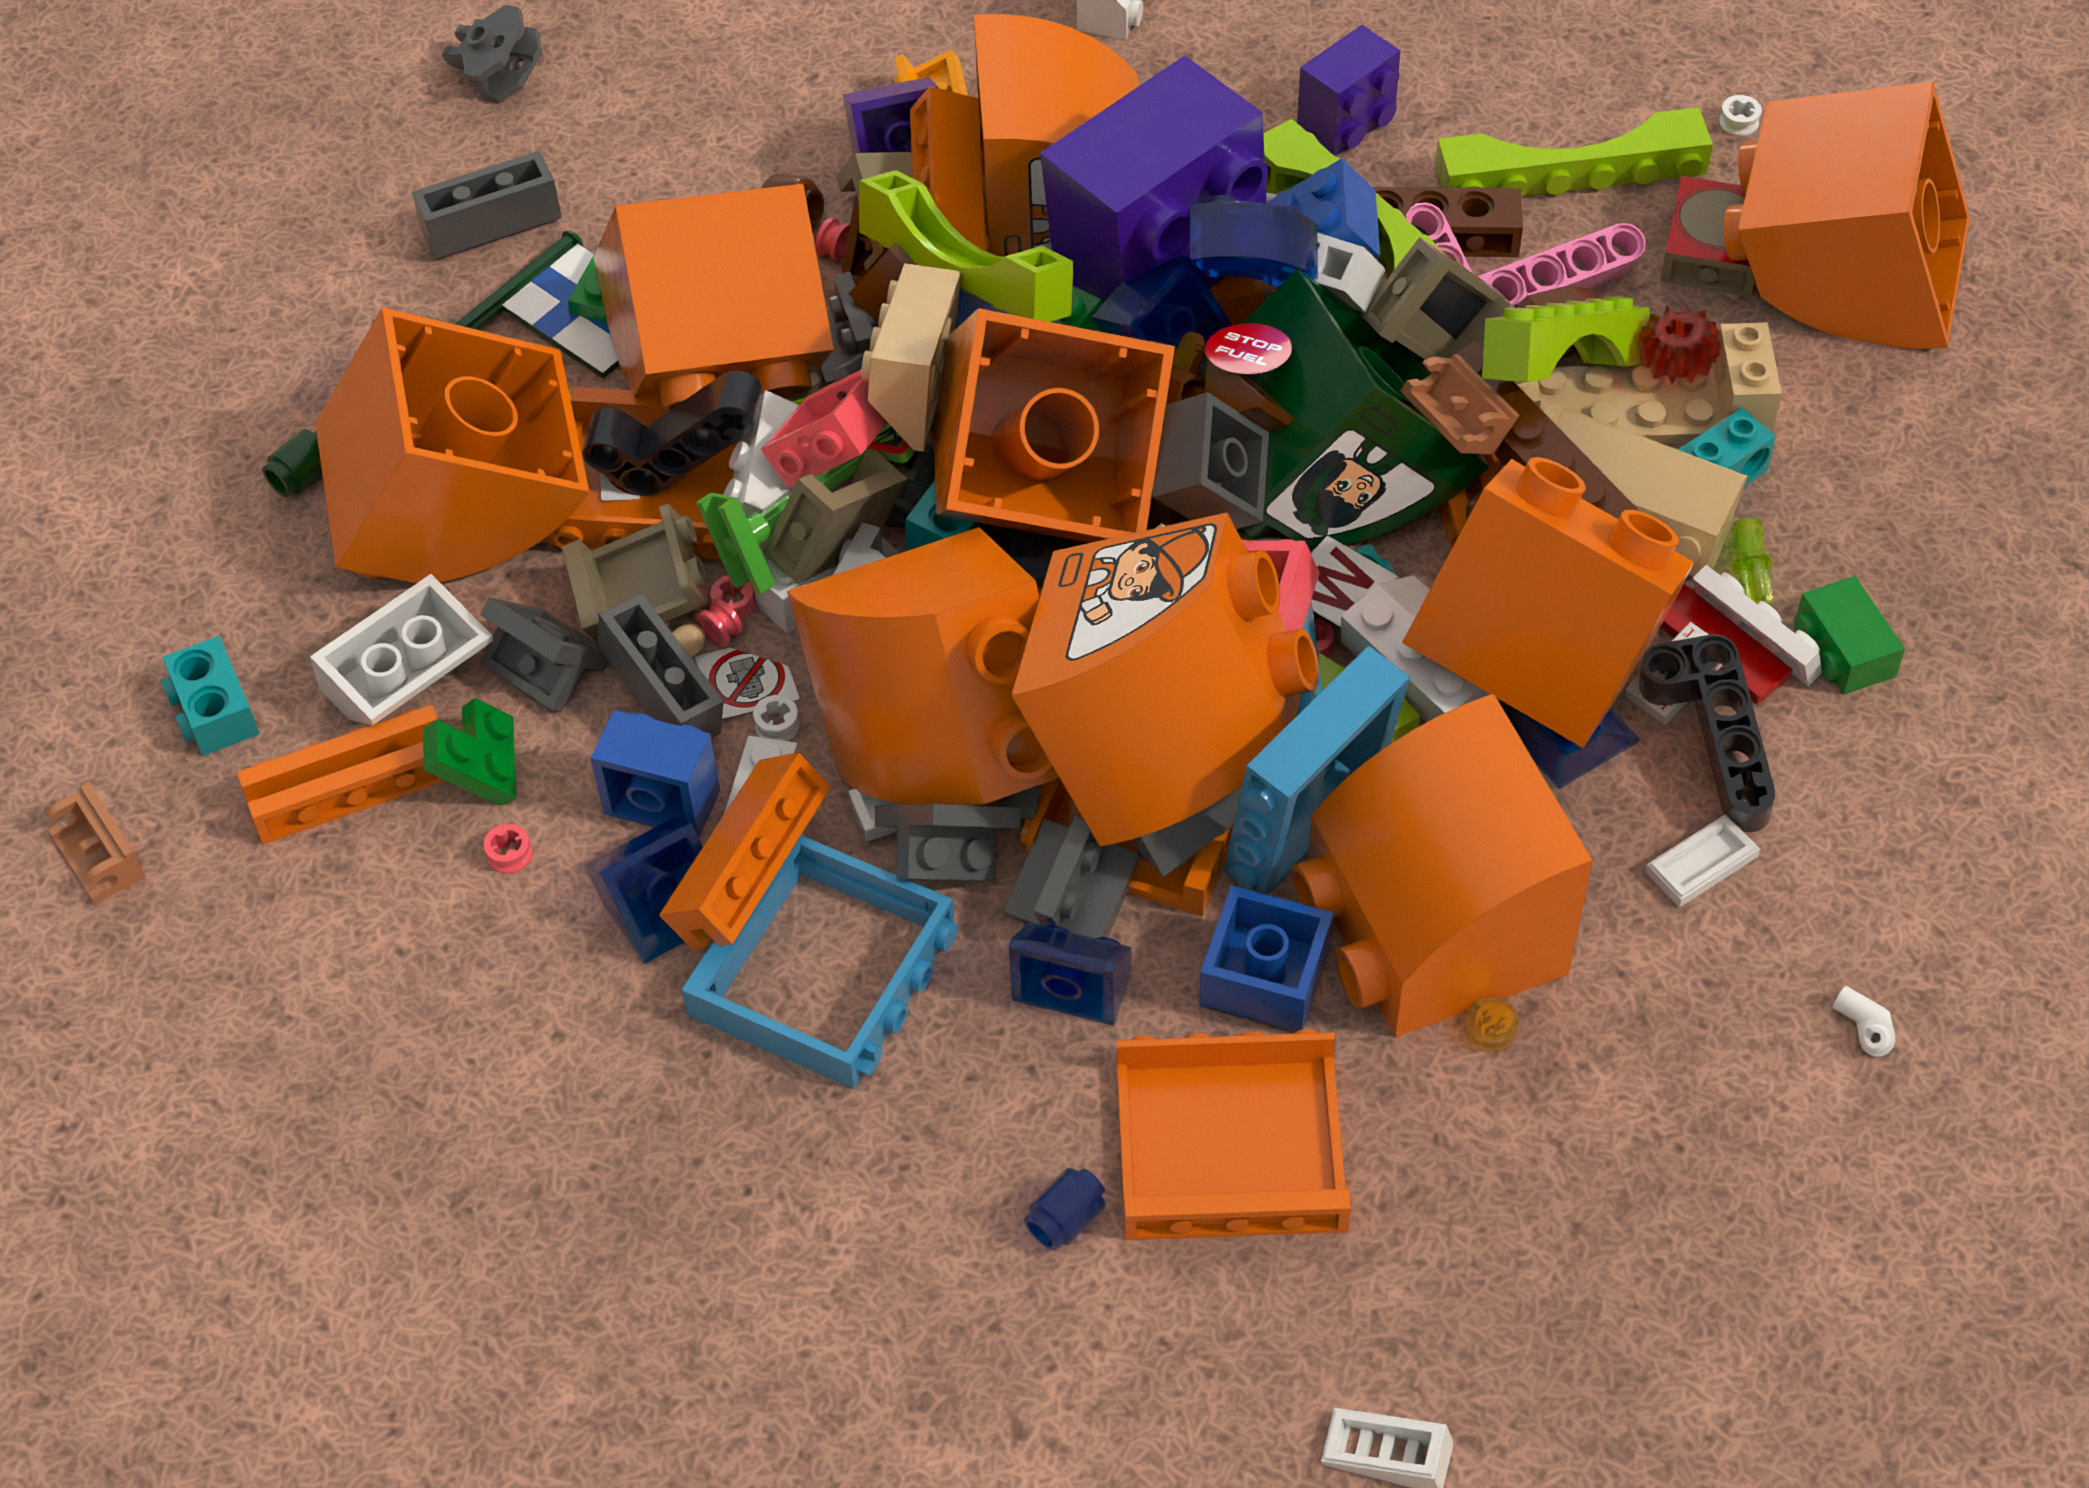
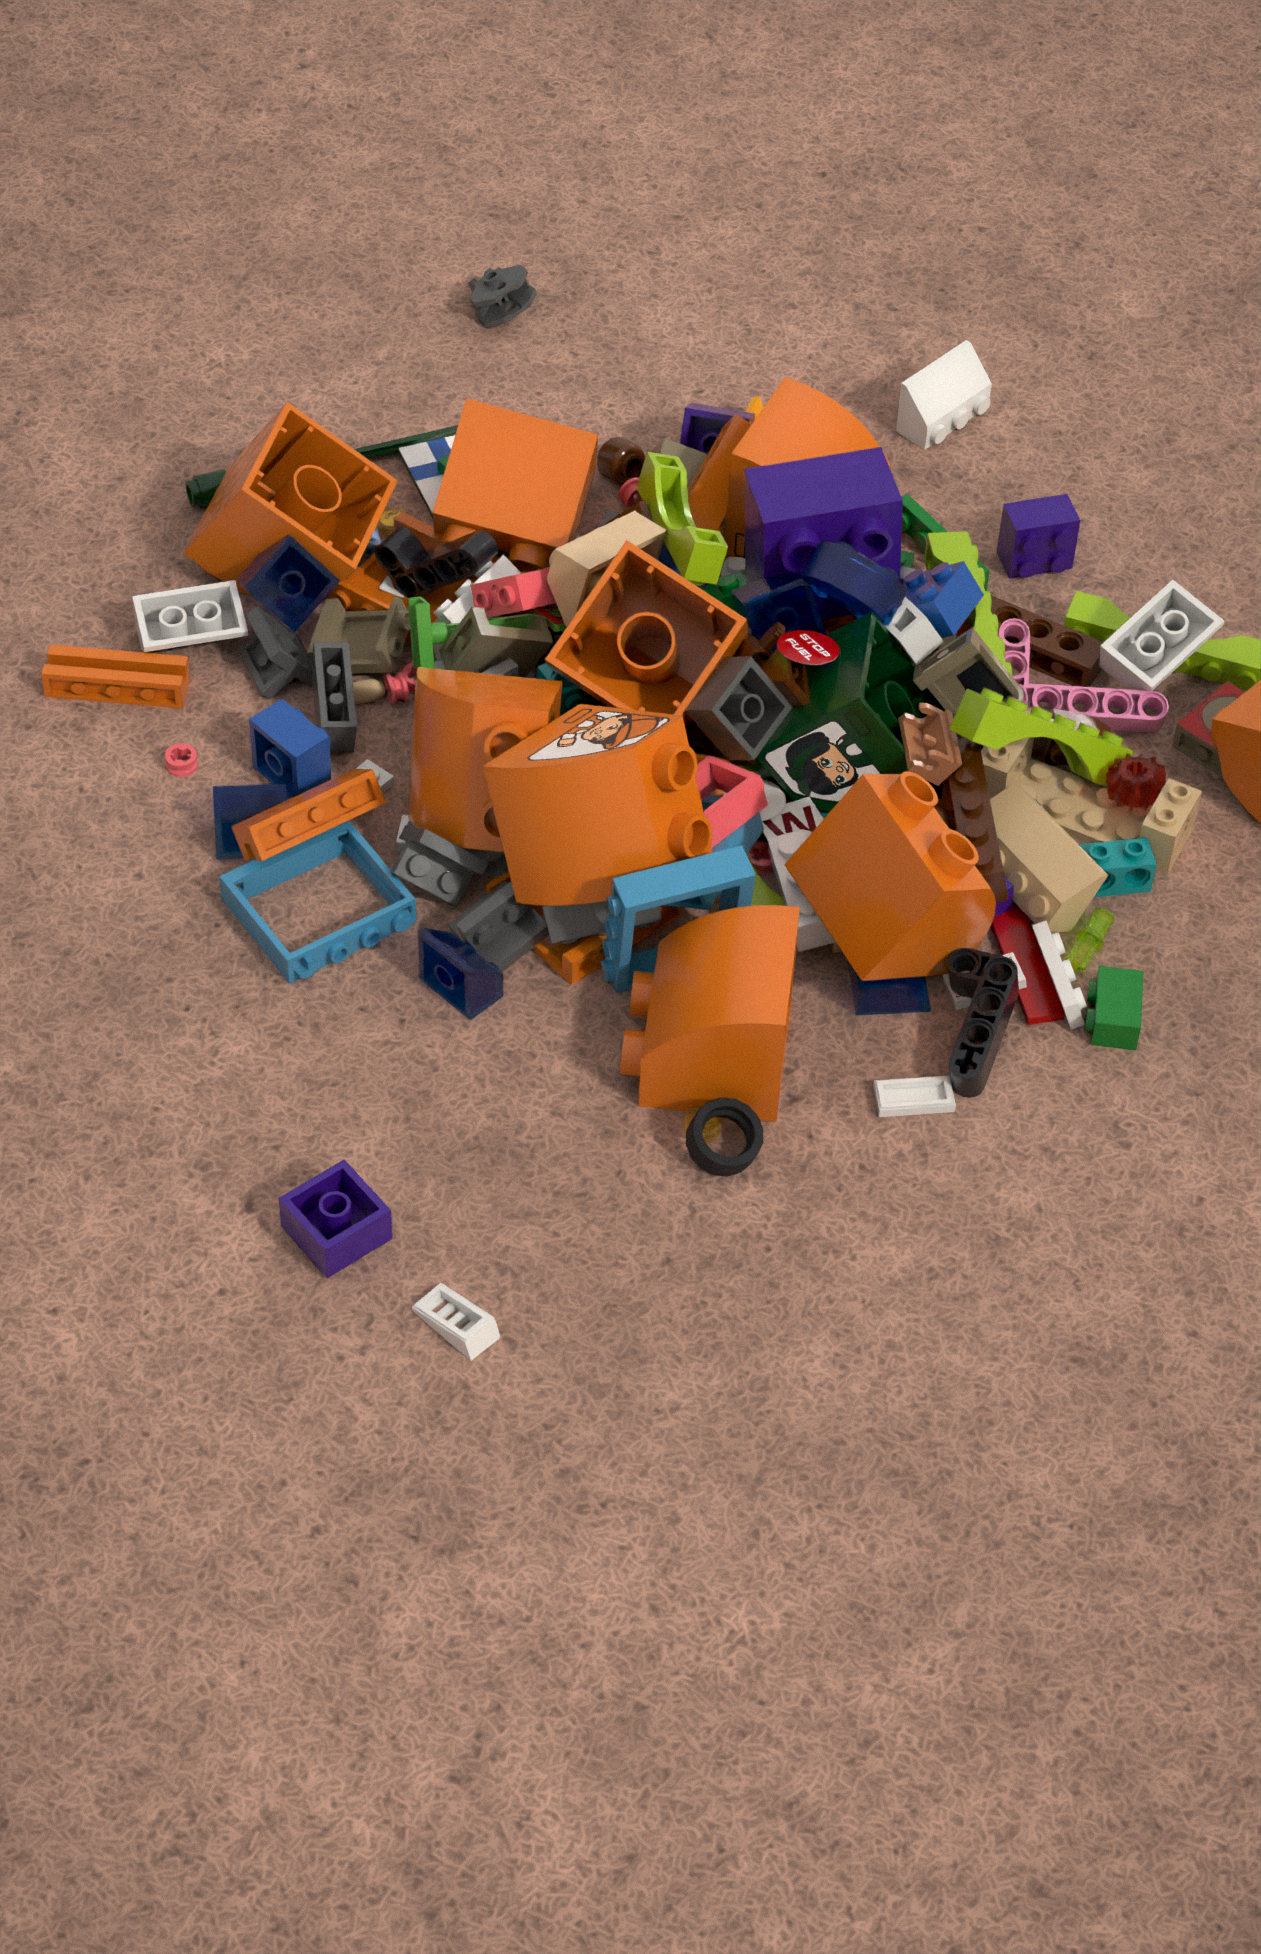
camera: 25 degrees right, 5 degrees down
(210, 696) = (67, 598): teal brick -> none
(478, 756) = (194, 701): green plate -> none
(487, 204) = (427, 382): dark grey brick -> none
(504, 546) = (288, 581): none -> clear blue slope
(745, 679) = (386, 729): sticker -> none
(785, 708) = (392, 749): white bush -> none
(1065, 1208) = (361, 1100): clear blue brick -> none
(1156, 1393) = (335, 1218): none -> dark purple brick
(1230, 1136) = (492, 1109): orange panel -> none
(1265, 959) = (582, 1019): blue brick -> none
(1564, 1004) = (743, 1117): none -> black tyre
(1591, 159) = (1158, 638): none -> white slope
(1872, 1021) = (949, 1233): white arm -> none

